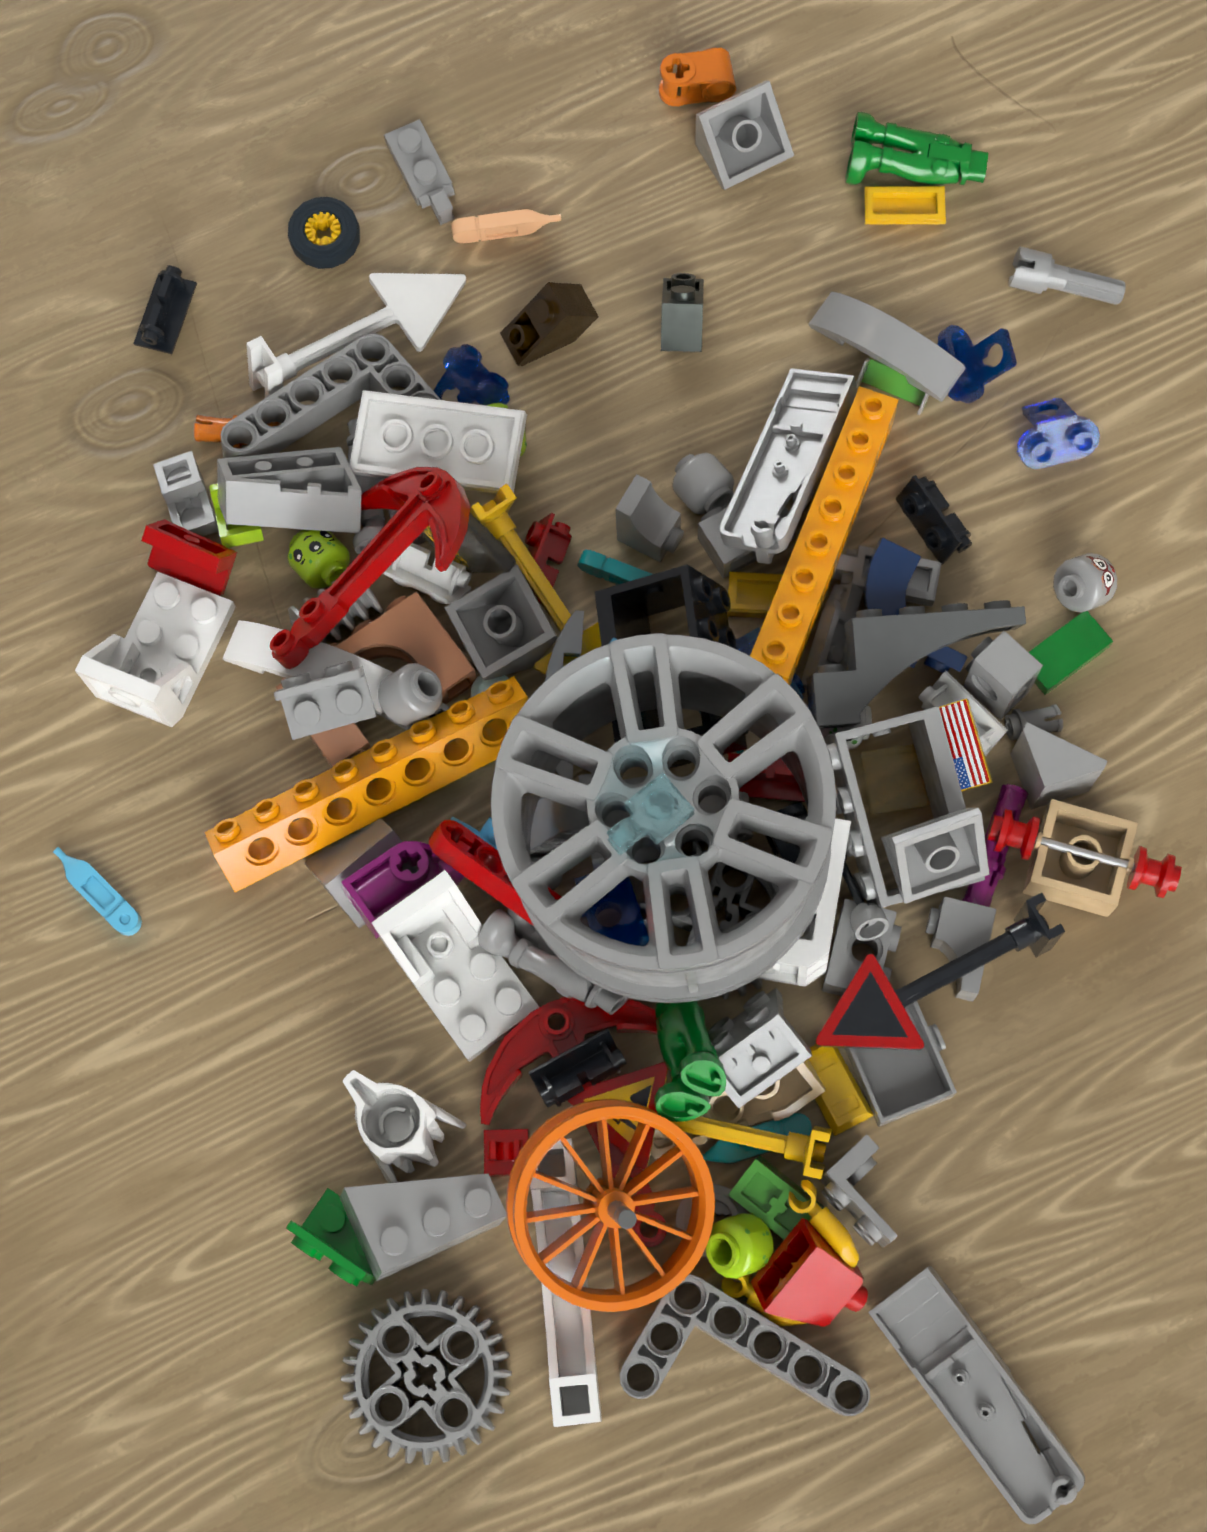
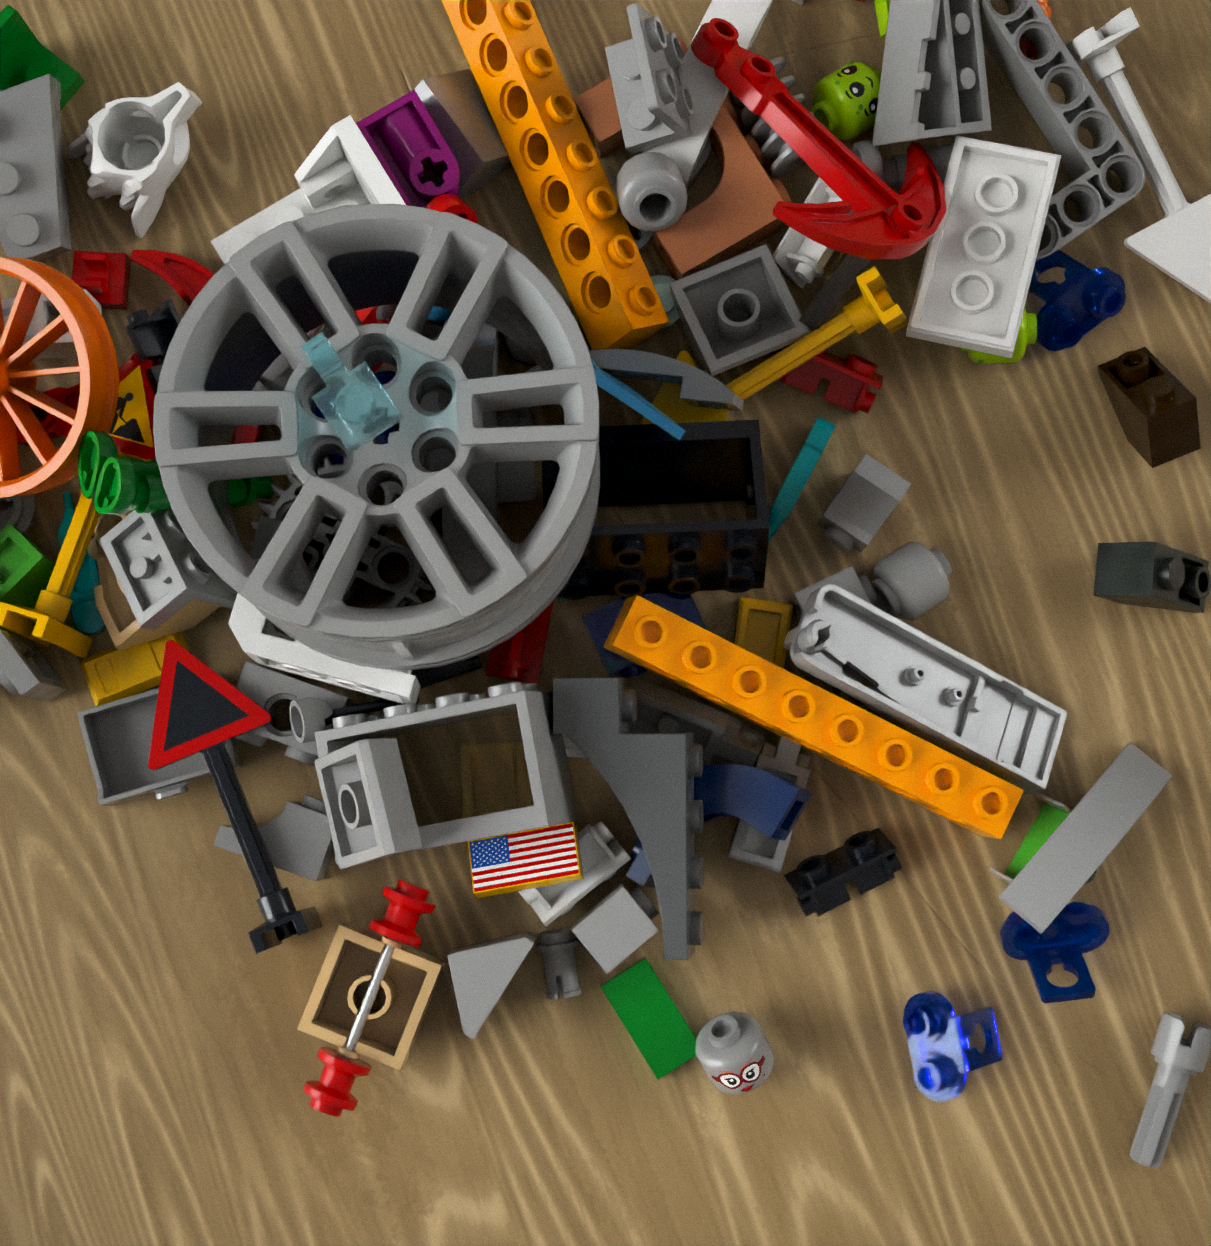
camera: 85 degrees right, 10 degrees up
(981, 892) = (372, 877): magenta pin -> none

